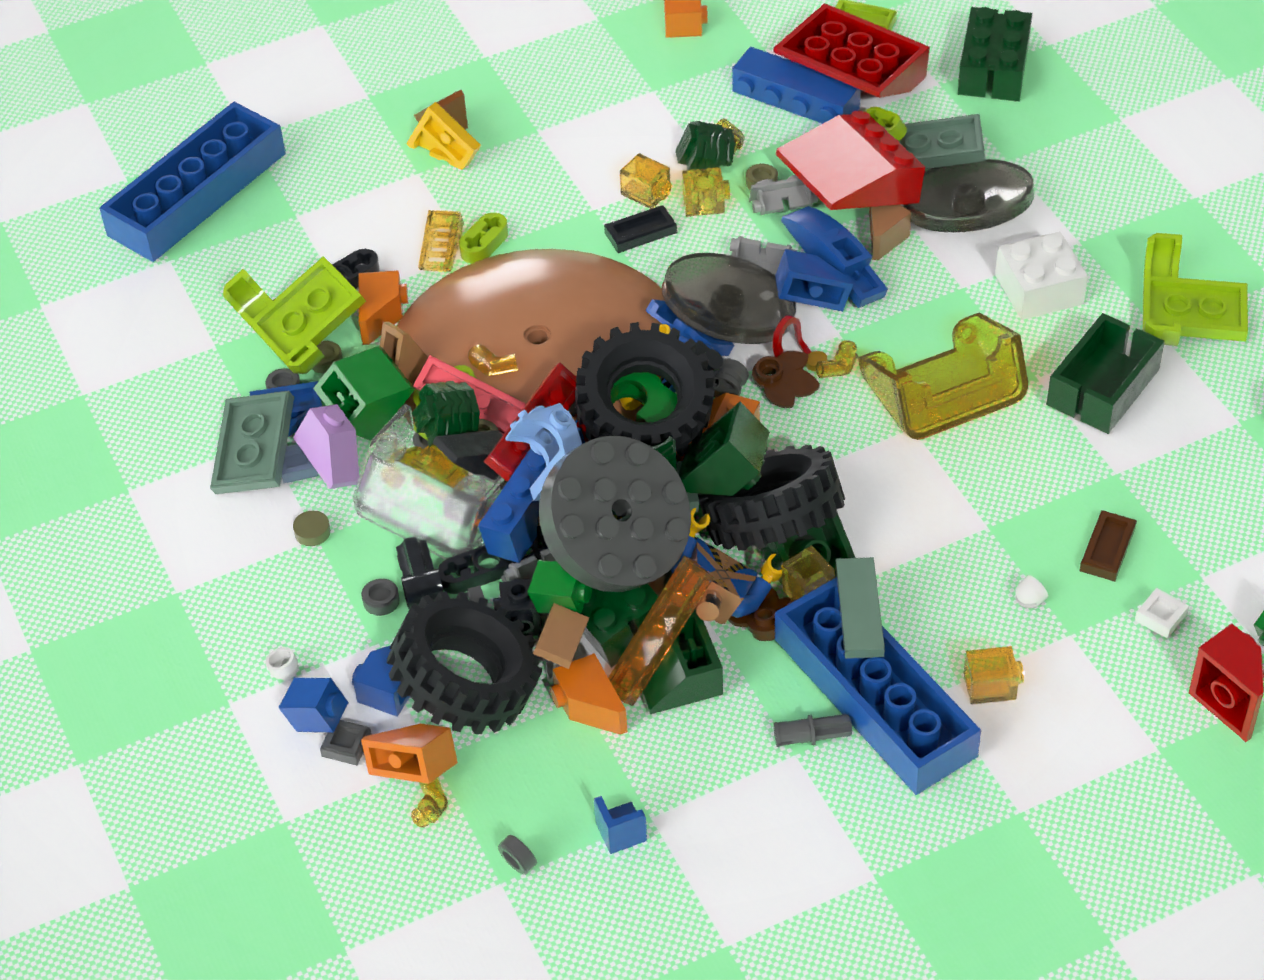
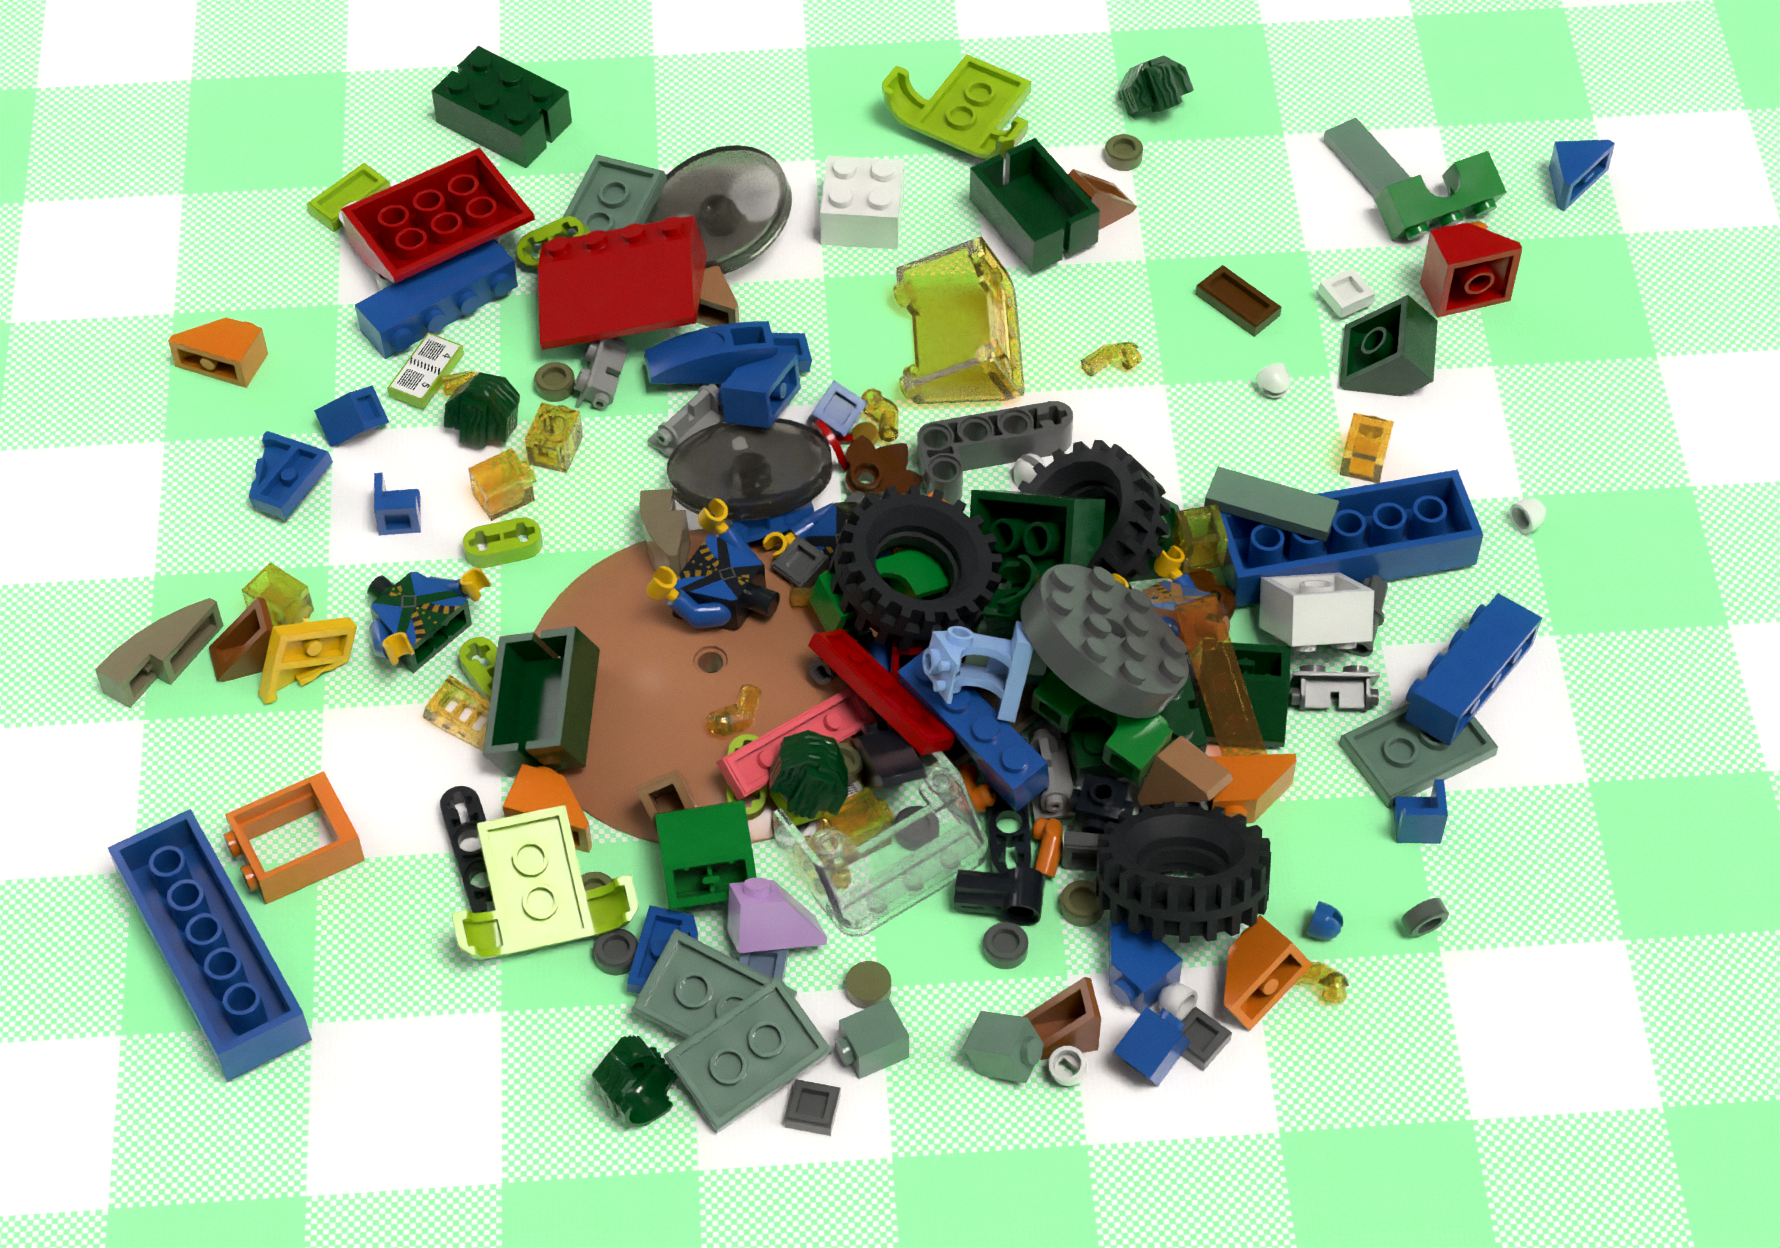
camera: 70 degrees left, 5 degrees up
(169, 422) = (634, 1082): none -> dark green hair
(197, 532) = (812, 1107): none -> dark grey tile
(217, 474) = (747, 1053): none -> sand green tile
(260, 541) = (872, 1039): none -> sand green brick
(277, 615) = (1003, 1046): none -> sand green brick
(320, 652) = (1068, 1019): none -> dark orange slope
(329, 196) = (279, 809): none -> orange window
(374, 709) = (1177, 1000): none -> white hinge
(413, 75) = (159, 651): none -> dark tan slope
(451, 258) = (542, 701): none -> dark green piece
(485, 112) = (285, 595): none -> clear yellow brick
(485, 786) = (1325, 922): none -> blue hinge
(489, 587) = (1051, 837): none -> orange arm
(501, 181) = (421, 614): none -> torso
(593, 78) = (286, 474): none -> blue wing
(597, 138) = (396, 509): none -> blue panel
(597, 305) = (719, 581): none -> torso
(604, 200) = (502, 542): none -> lime beam
(630, 272) = (664, 530): none -> dark tan slope
(640, 228) = (566, 519): black tile -> none
(663, 88) = (351, 415): none -> blue panel
(700, 808) = (1406, 760): none -> sand green tile
(731, 739) = (1351, 685): none -> hinge
(737, 110) = (424, 370): none -> tile
(773, 676) = (1316, 610): none -> white brick
(785, 813) = (1472, 668): none -> blue brick
(820, 327) = (838, 409): none -> panel
(827, 408) = (988, 440): none -> dark grey beam
(846, 467) = (1024, 468): none -> white hinge
(990, 477) = (1110, 353): none -> clear yellow arm
(991, 816) = (1528, 514): none -> hinge
(1114, 663) = (1390, 350): none -> dark green slope
(1148, 415) = (1105, 195): none -> dark orange slope
(1222, 420) = (1123, 152): none -> olive tile

